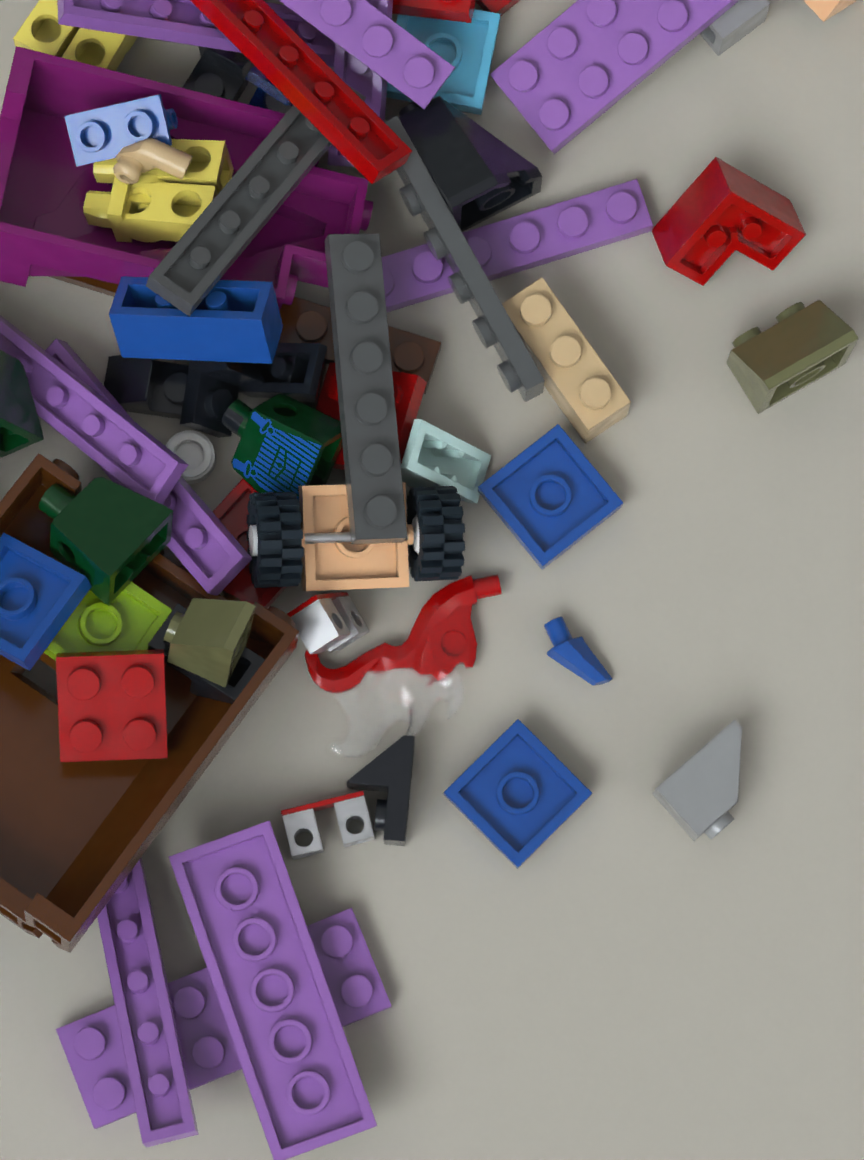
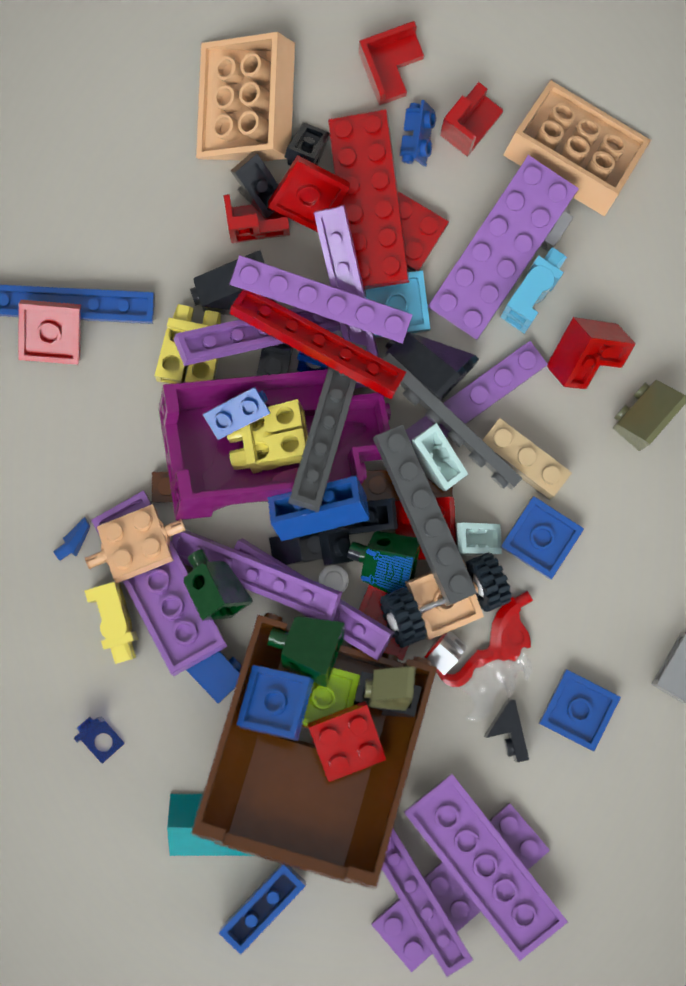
camera: 25 degrees left, 5 degrees up
(149, 155) = (259, 423): tan arm -> none
(303, 819) = (488, 749): flat silver piece -> none
(420, 308) = (438, 458): none -> light aqua slope
(574, 653) = (584, 621): blue bar -> none
(666, 96) = (538, 282): none -> medium azure hips

